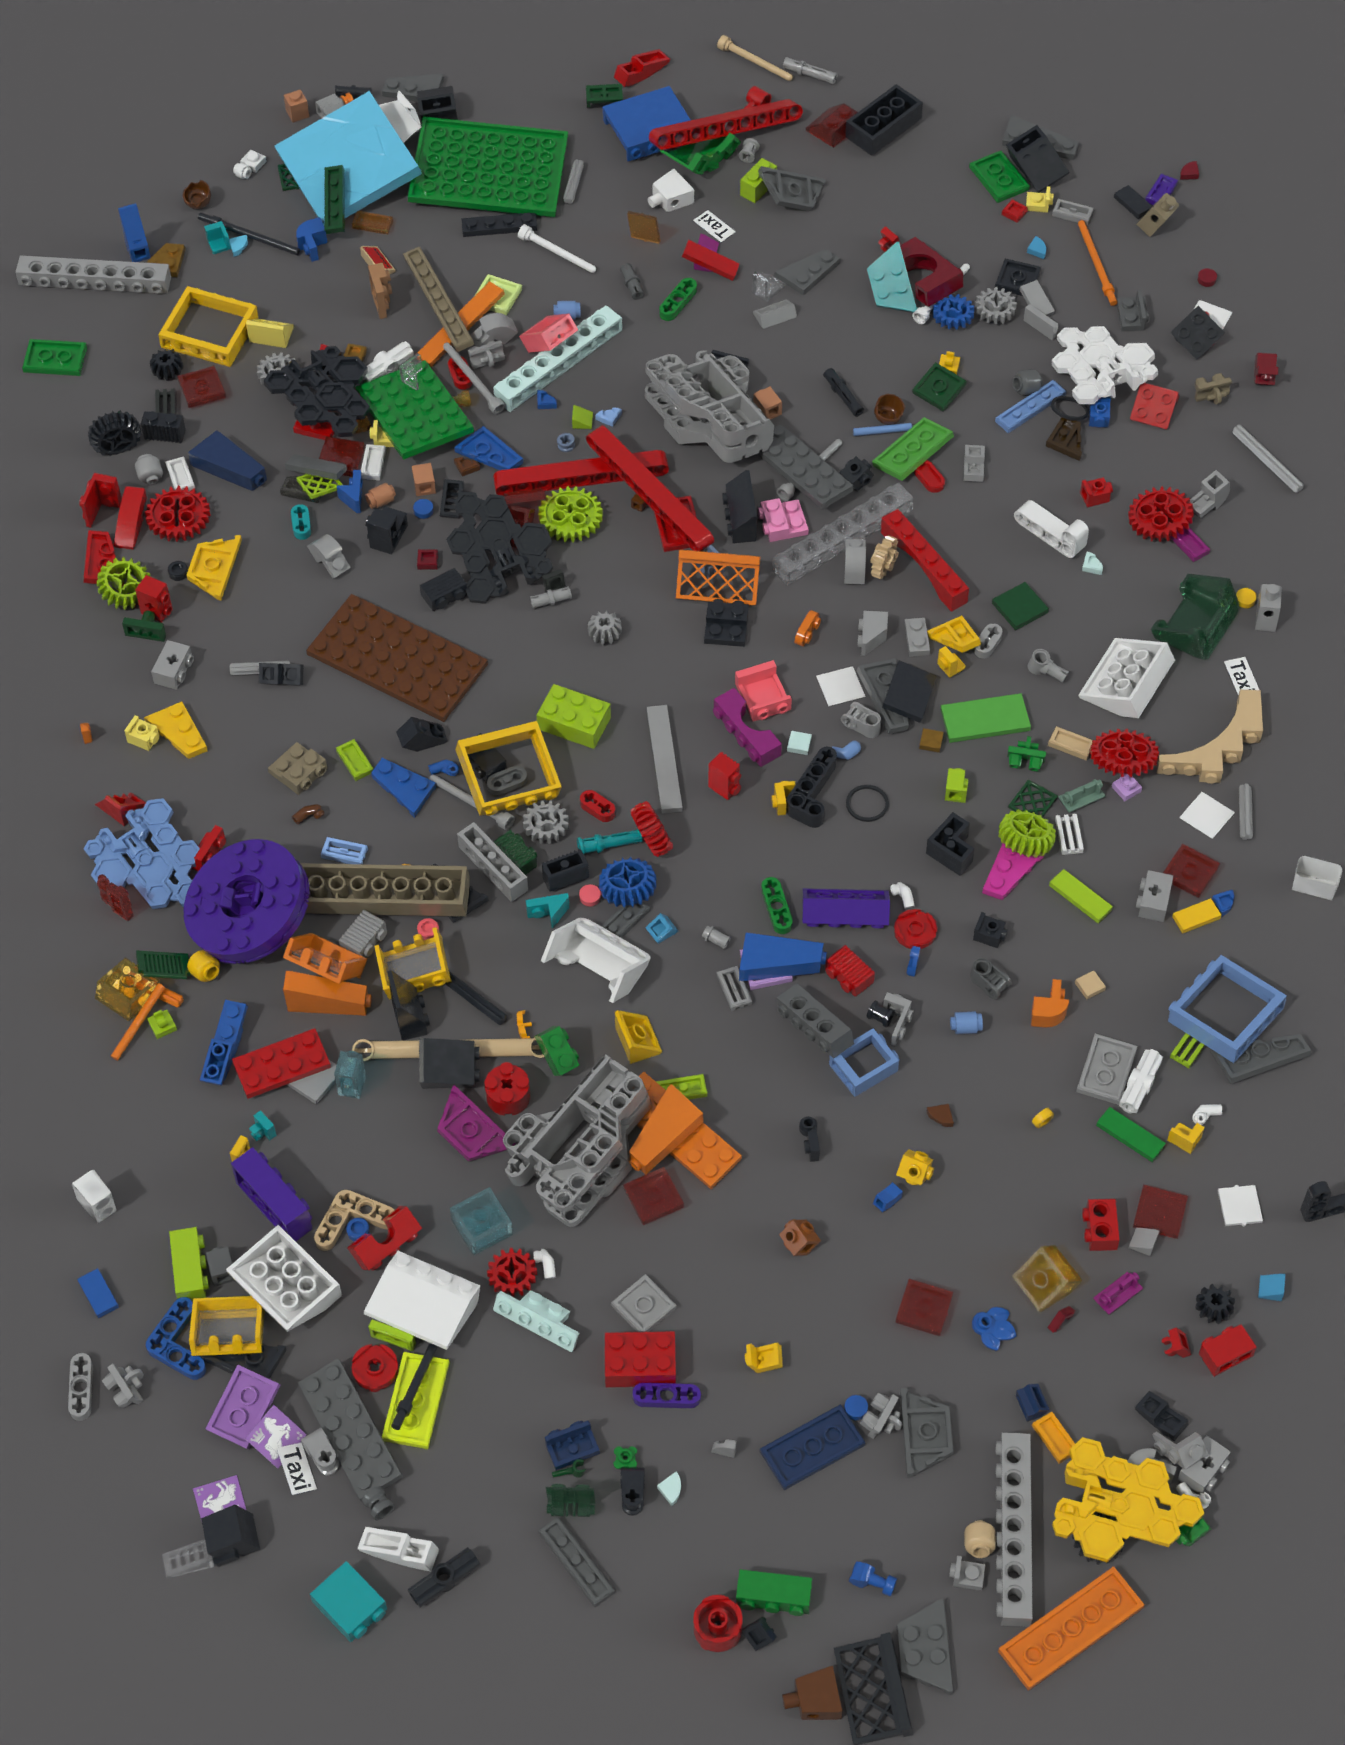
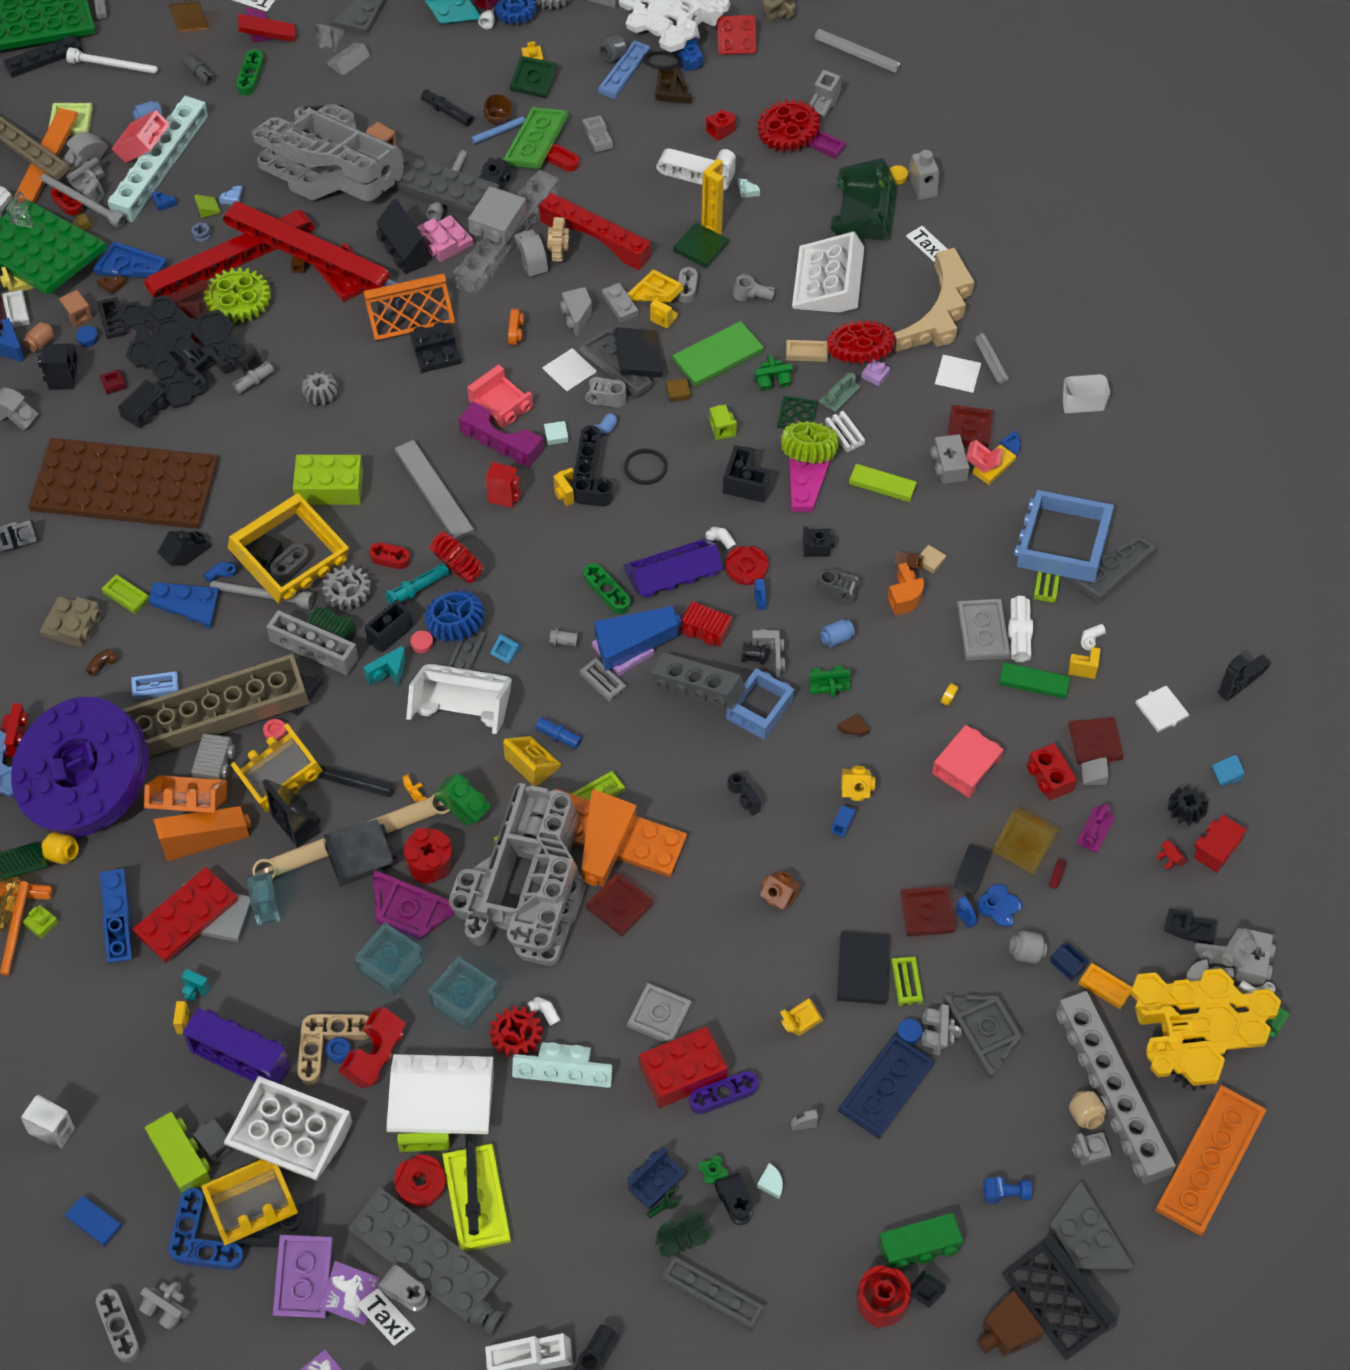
camera: 25 degrees left, 0 degrees up
(433, 1167) = (389, 959): none -> clear light blue brick
(485, 372) = (92, 190): none -> light grey tile
(671, 1022) = (558, 733): none -> blue pin
(836, 516) = (497, 215): none -> light grey brick
(842, 1335) = (863, 968): none -> black tile
(870, 1379) = (909, 998): none -> lime tile
(937, 1065) = (829, 681): none -> green hips
(958, 1322) = (966, 912): none -> blue tile
(984, 1285) = (972, 869): none -> black slope
(999, 1374) = (1028, 947): none -> light grey head
(1028, 1184) = (967, 760): none -> coral panel
(1045, 564) = (713, 197): none -> yellow fence
(1068, 979) = (913, 560): none -> reddish brown piece
(1185, 905) = (983, 457): none -> coral bracket

